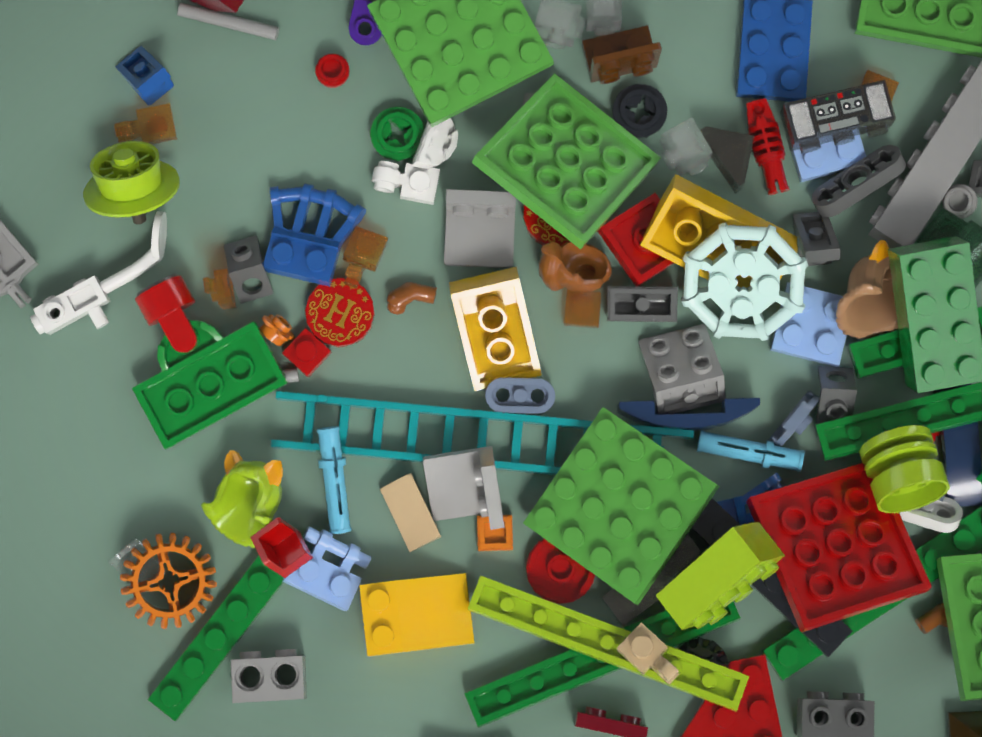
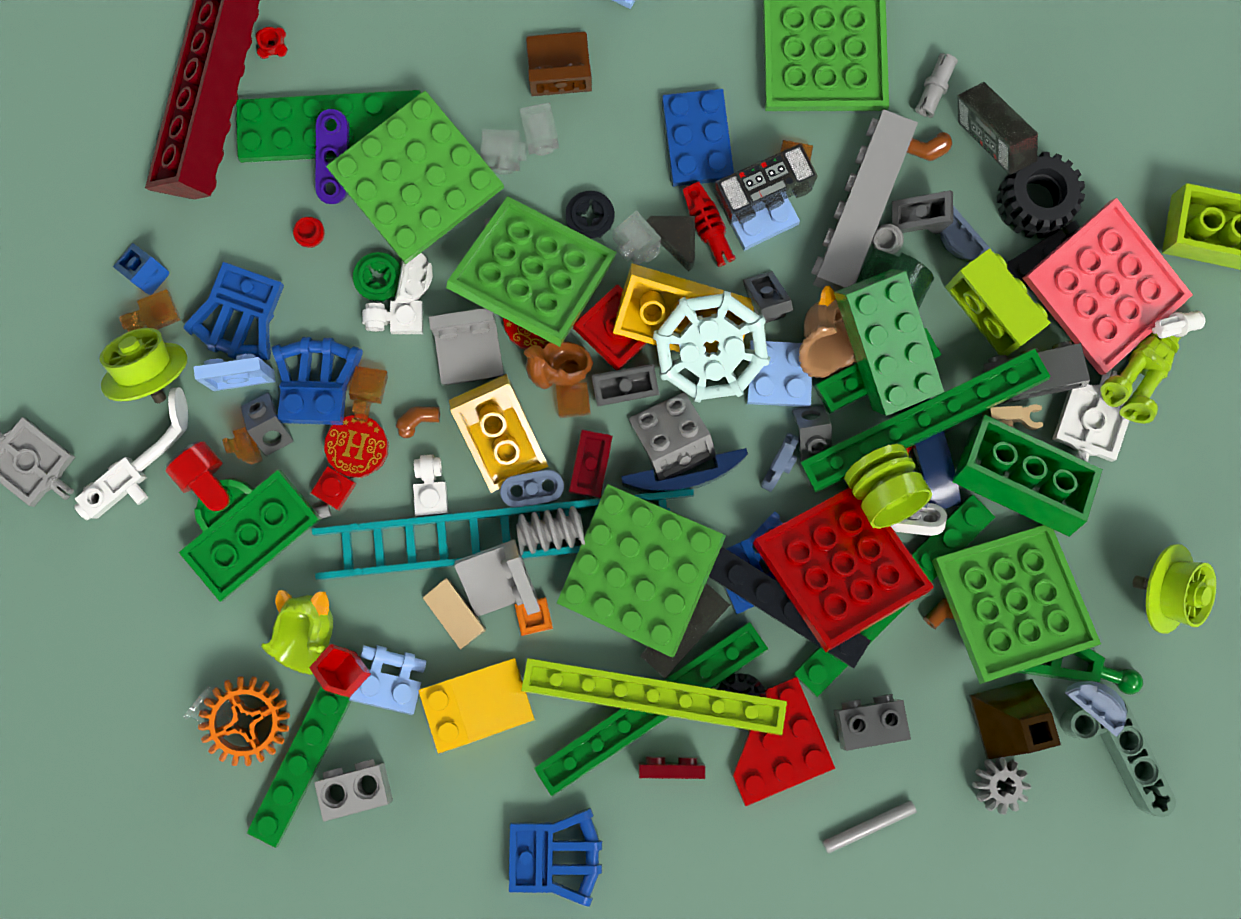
camera: 15 degrees left, 0 degrees up
(228, 21) = (207, 206): light grey bar -> none
(236, 209) = (242, 372): none -> light blue plate
(252, 124) = (245, 293): none -> blue plate
(276, 329) = (301, 472): orange plate -> none
(334, 479) = (378, 598): medium azure pin -> none
(409, 382) = (430, 496): none -> white plate
(531, 443) = (549, 530): none -> light grey piece
(556, 575) = (595, 643): red tile -> none
(588, 381) = (591, 464): none -> dark red plate
(621, 54) = (563, 168): reddish brown bracket -> none
(645, 651) = (688, 698): tan plate -> none
(721, 576) = (743, 616): lime brick -> none
(787, 457) = (747, 497): medium azure pin -> none
(883, 174) = (774, 259): dark grey beam -> none

